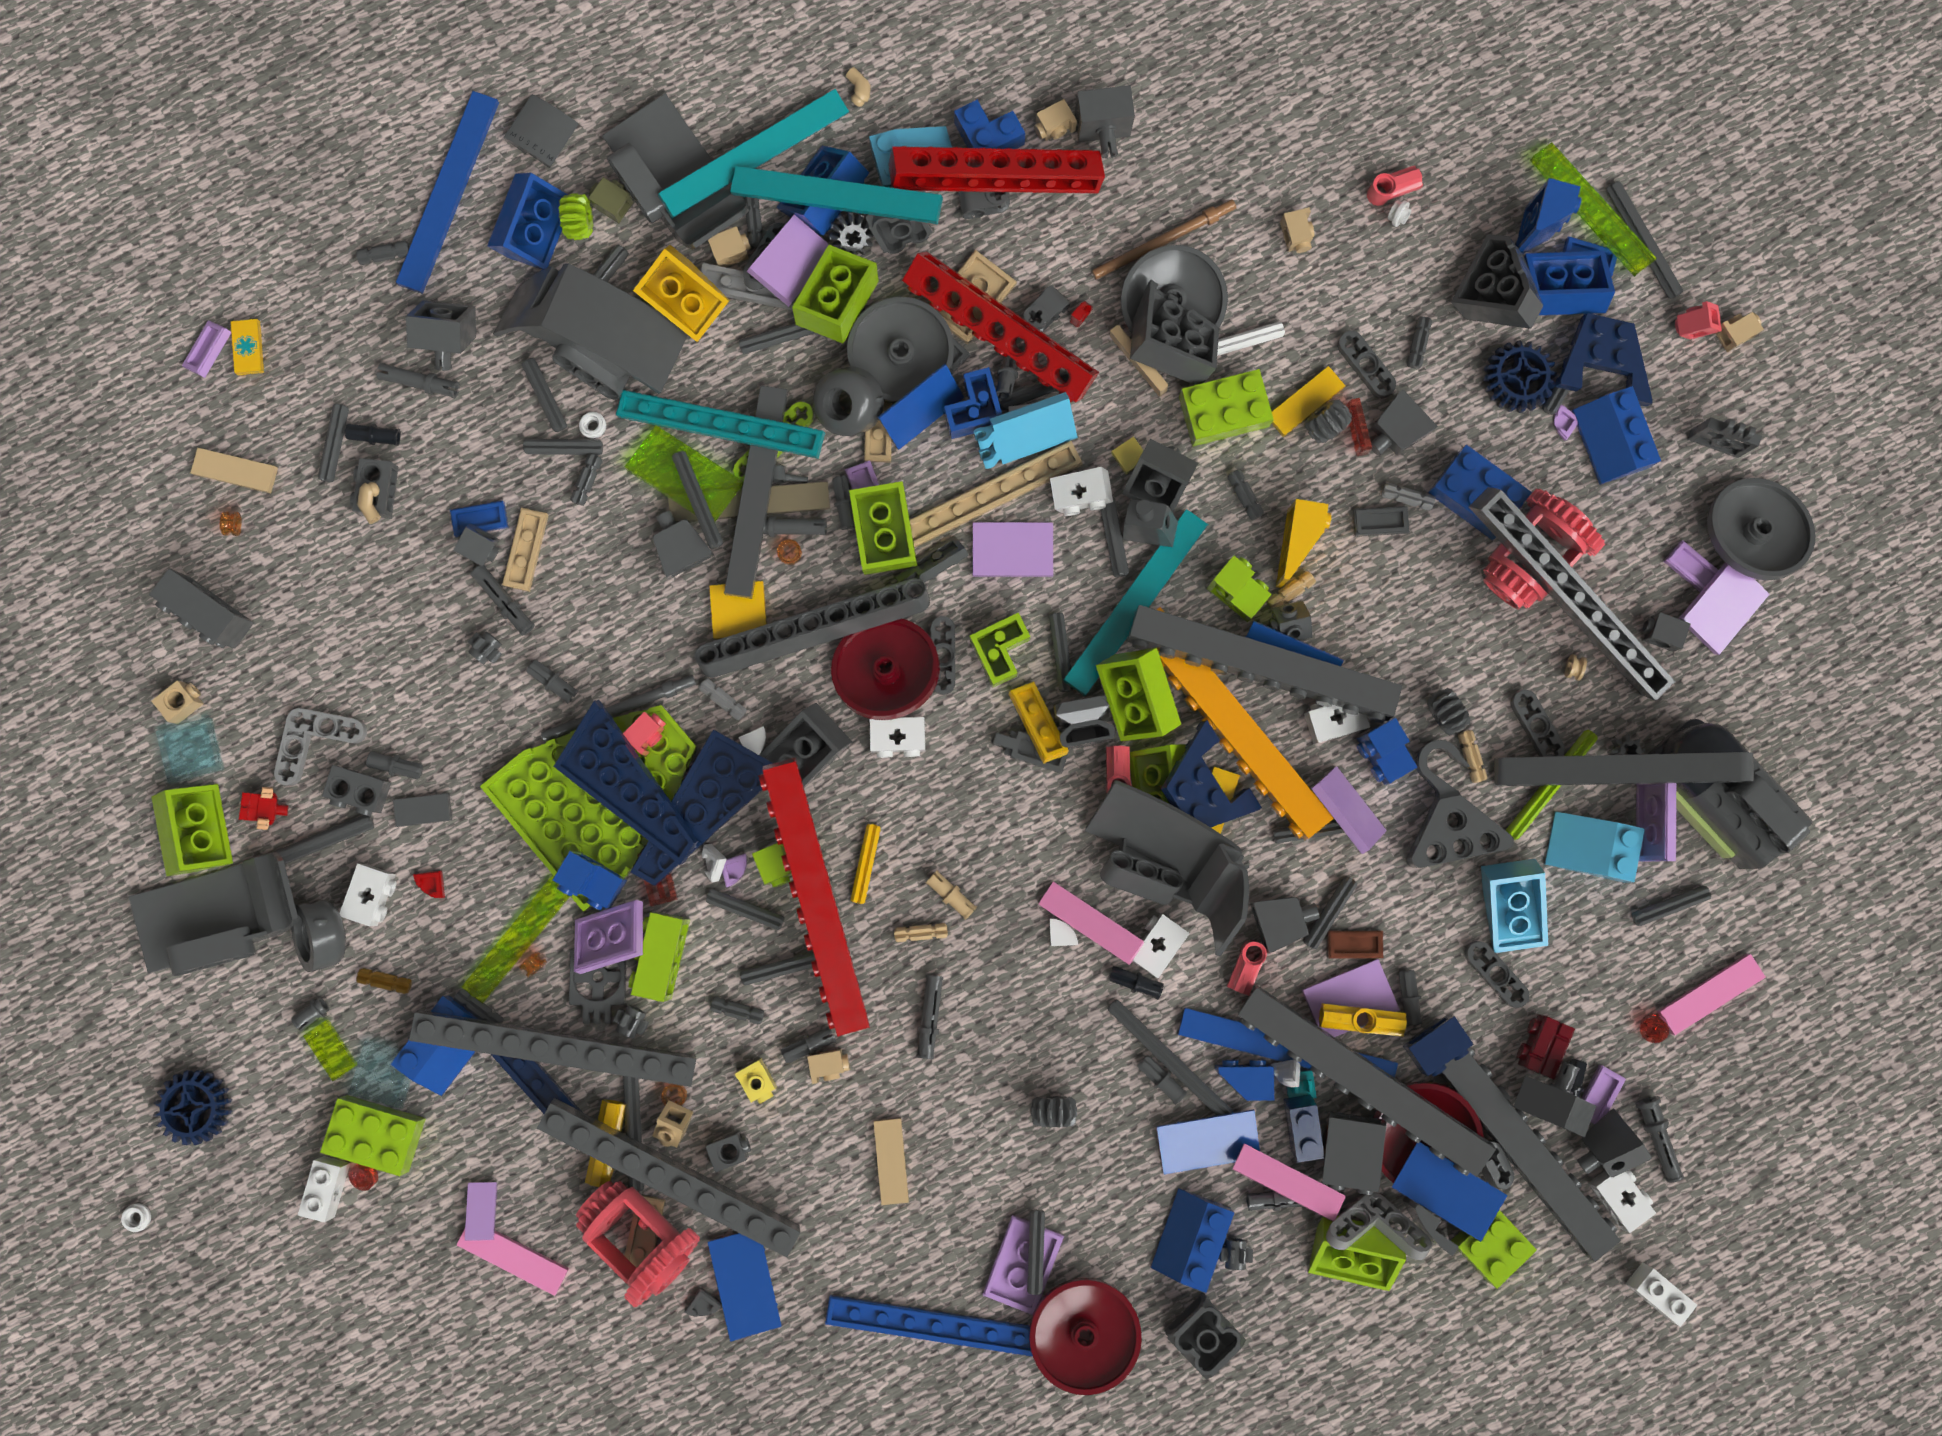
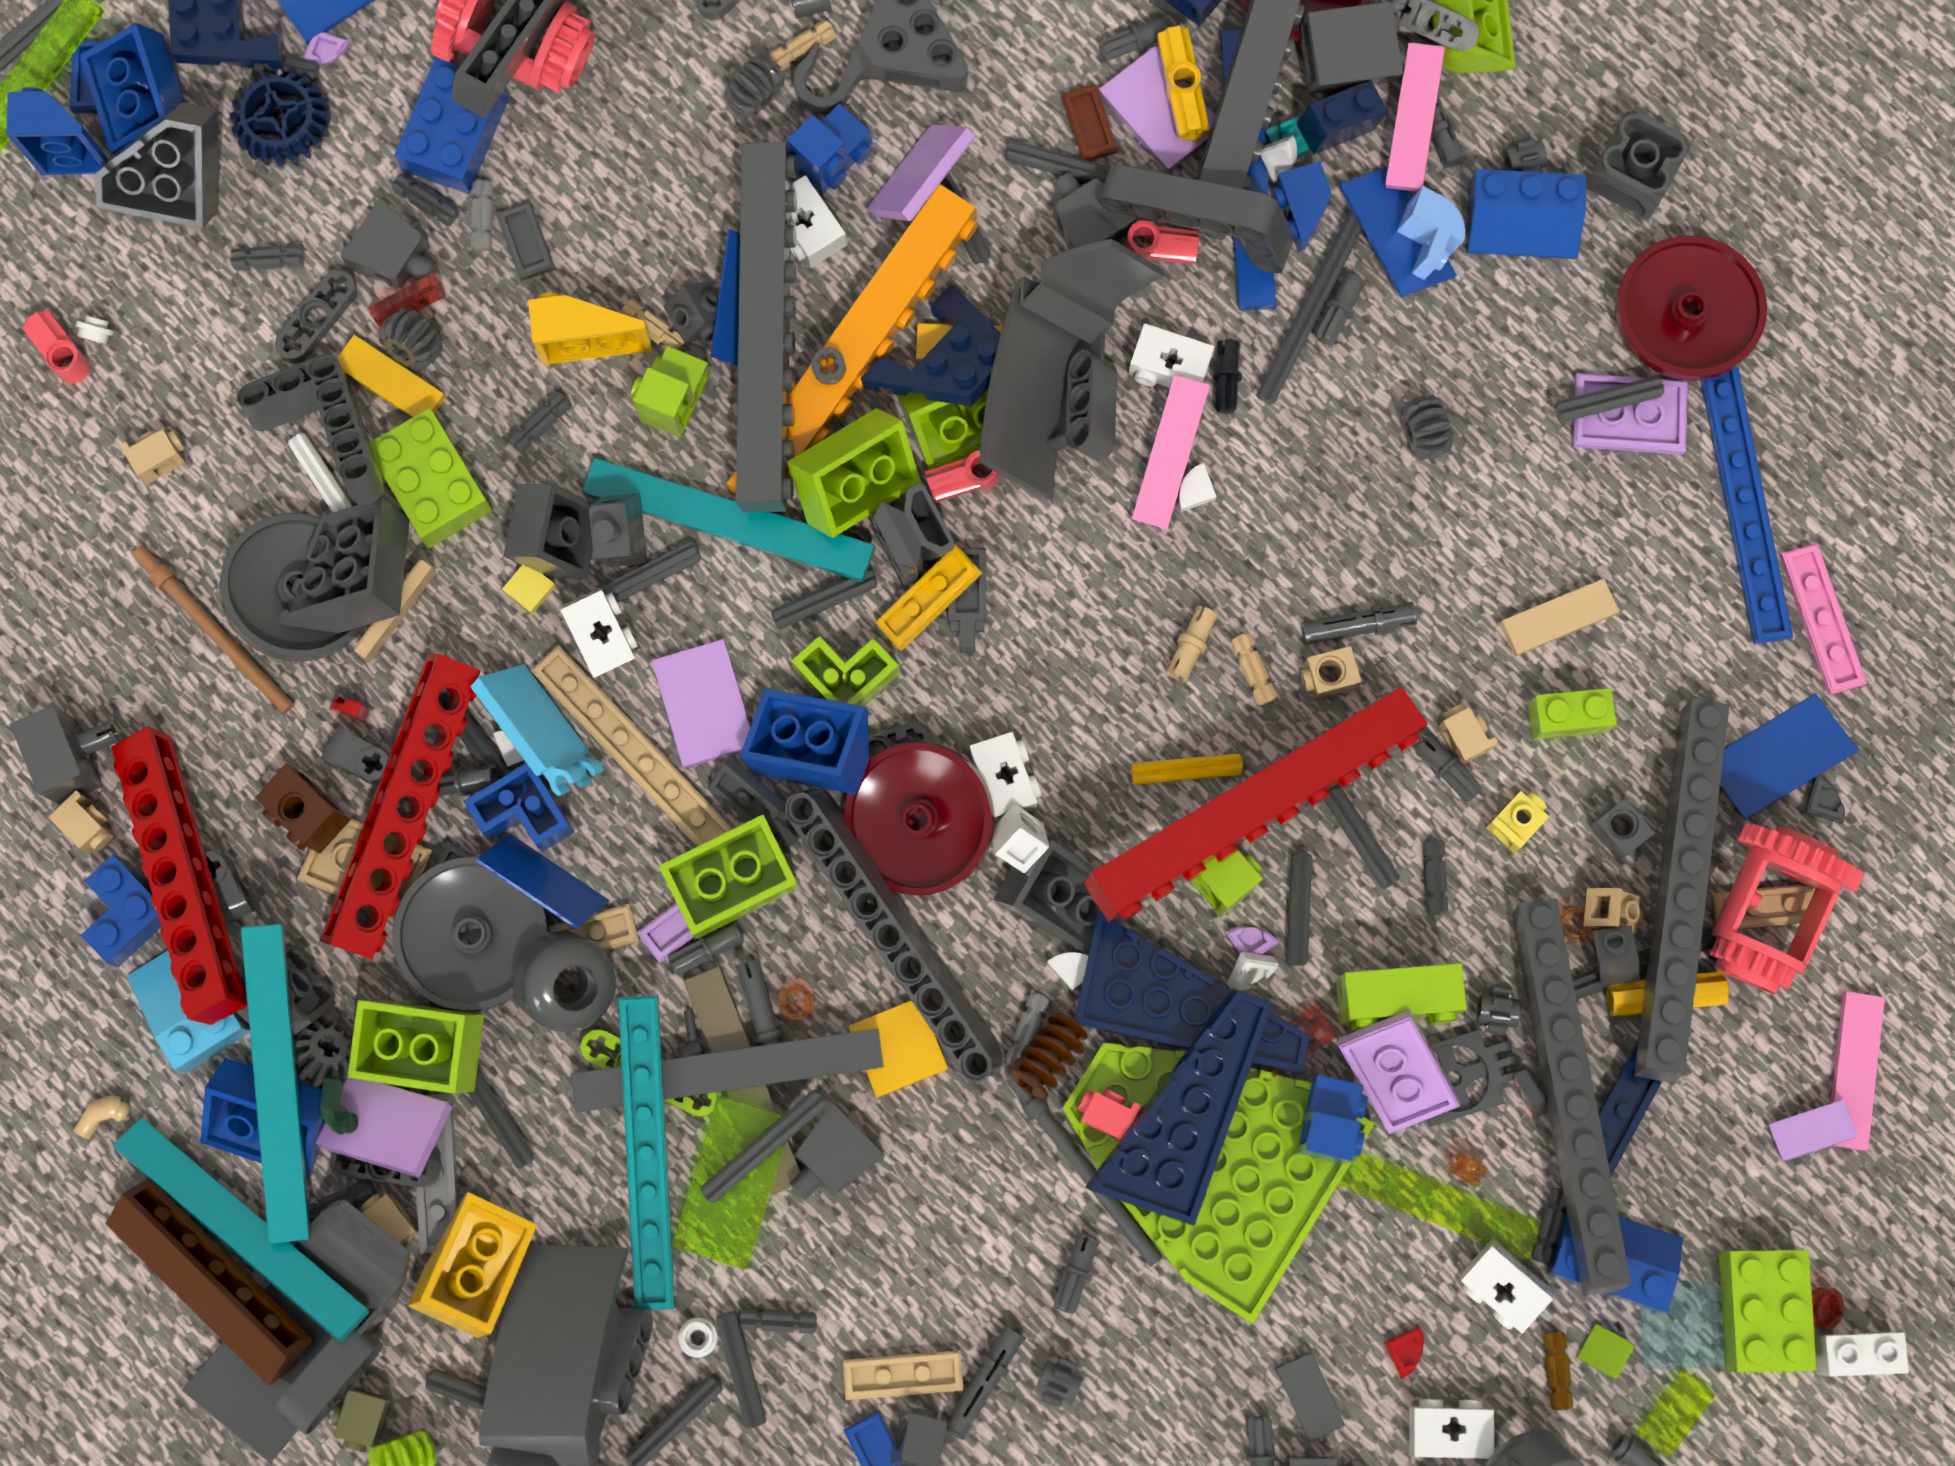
camera: 105 degrees left, 5 degrees down
(385, 1017) = (1605, 1351): none -> lime slope
(447, 963) = (1499, 1266): none -> white brick
(570, 1024) = (1530, 1093): none -> dark grey tile
(639, 1114) = (1616, 956): none -> dark grey brick
(697, 705) = (1047, 1053): none -> reddish brown piece
(727, 124) = (208, 1281): none -> reddish brown brick
(809, 229) = (333, 1111): none -> clear green arm
(818, 1144) = (1572, 714): none -> lime brick
(831, 1351) = (1823, 619): none -> bright pink tile
(847, 730) = (1019, 838): none -> white brick
(896, 996) = (1344, 664): none -> tan brick
(960, 608) = (808, 741): none -> blue slope
(1010, 274) = (320, 818): none -> reddish brown brick
(1203, 1169) = (1436, 226): none -> light blue brick
(1220, 691) = (826, 353): none -> dark grey bush
(1258, 999) = (1205, 207): none -> dark grey beam
(1307, 356) = (320, 387): none -> dark grey beam
(1431, 460) = (425, 199): none -> dark grey axle

